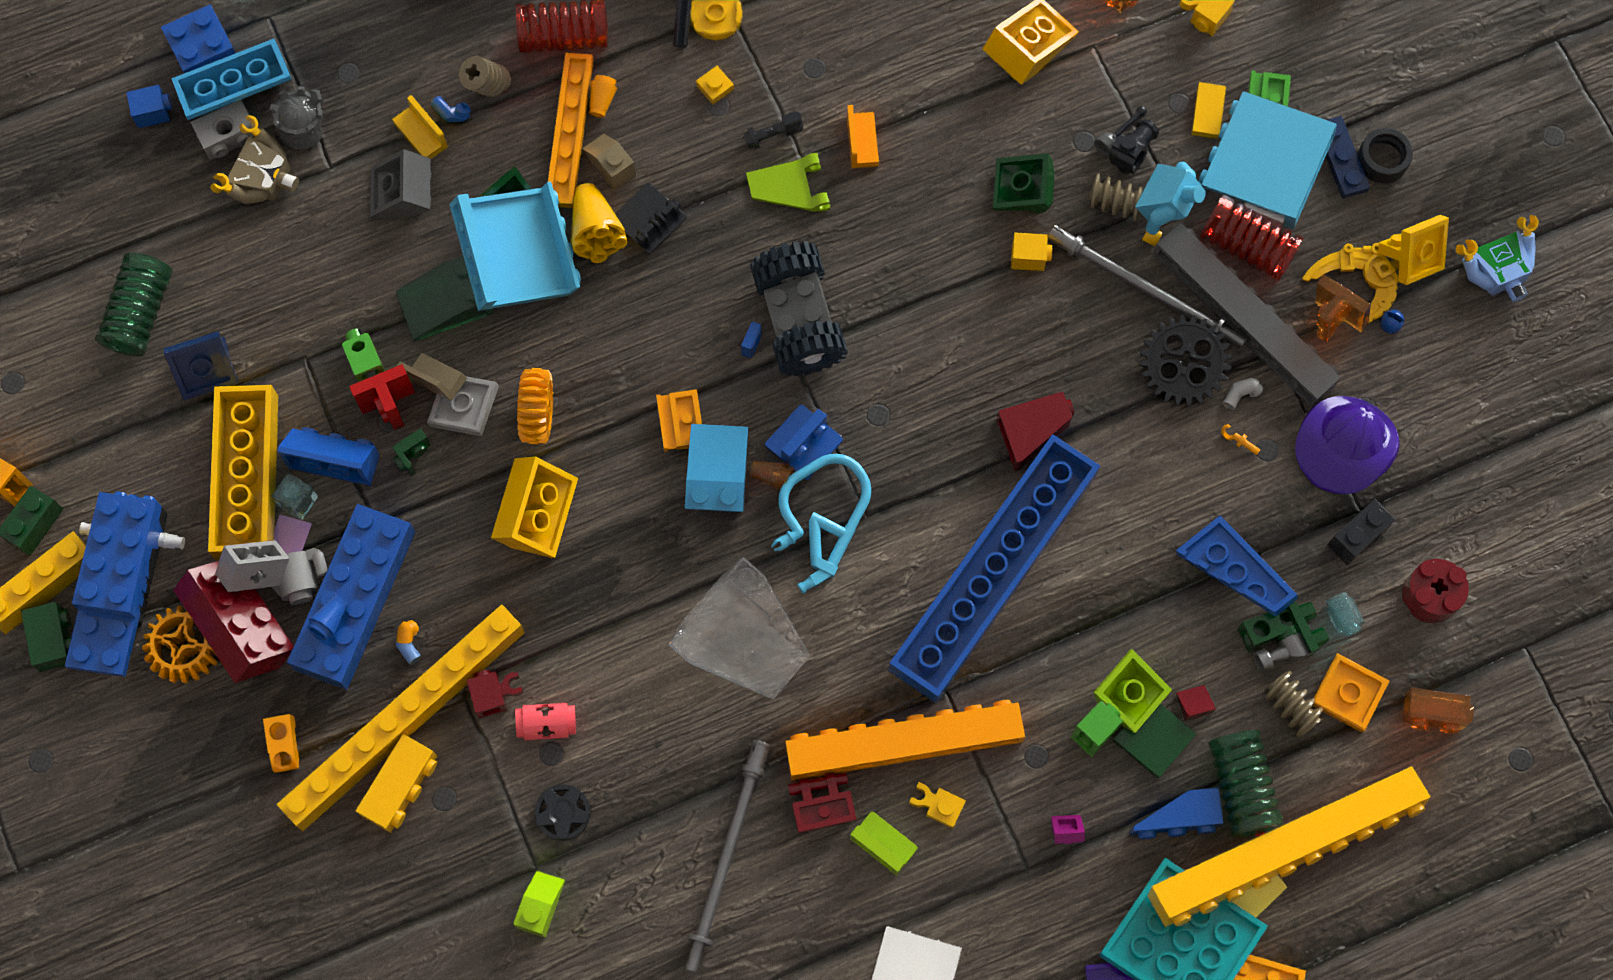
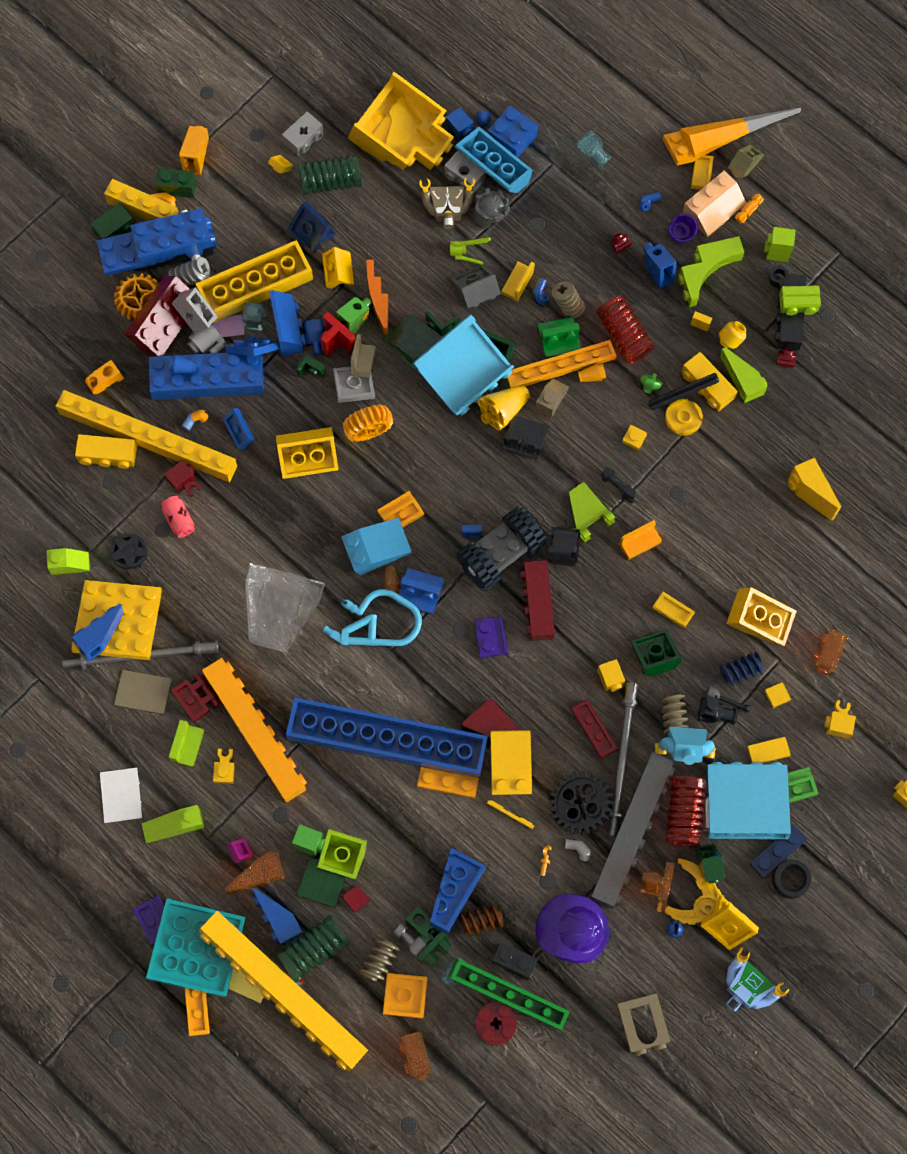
camera: 65 degrees right, 0 degrees up
(43, 546) = (165, 197): none -> light orange arm
(48, 331) = (303, 134): none -> light grey brick
(79, 366) = (280, 164): none -> yellow plate
(113, 178) = (403, 127): none -> yellow panel
(155, 72) = (483, 117): none -> blue hinge
(187, 550) = (192, 271): none -> light grey piece
(278, 355) = (337, 267): none -> yellow panel
(333, 184) = (458, 248): none -> lime plant
(343, 320) = (379, 300): none -> orange slope
(345, 512) = (252, 346): none -> blue plate
(363, 426) = (313, 332): none -> blue piece
(430, 261) = (435, 325): none -> dark green bracket
(454, 586) = (238, 429): none -> blue plate
(528, 113) = (559, 337): none -> green bracket
(650, 30) = (650, 383): none -> bright green piece
(660, 868) = (137, 626): none -> yellow plate
(683, 905) = (96, 636): none -> blue slope
(779, 875) = (143, 692): none -> dark tan window
(831, 230) = (564, 546): none -> black brick
(887, 297) = (538, 600): none -> dark red brick
(908, 379) = (490, 637): none -> dark purple plate
(972, 140) = (673, 610): none -> yellow tile
(992, 906) = (173, 824): none -> lime slope
(1084, 518) = (447, 782): none -> light orange plate
(1089, 305) = (594, 729): none -> dark red tile
(1090, 91) = (742, 668): none -> dark blue piece
(1099, 422) = (511, 762): none -> yellow slope
(1109, 813) = (260, 872): none -> clear orange slope
(1140, 68) = (777, 695): none -> yellow tile
(1147, 466) = (500, 808): none -> yellow piece
(1290, 550) = (481, 920): none -> reddish brown piece
(1330, 238) = (710, 863): none -> dark green slope
(1407, 555) = (508, 994): none -> green brick
(1474, 422) = (634, 1043): none -> dark tan panel

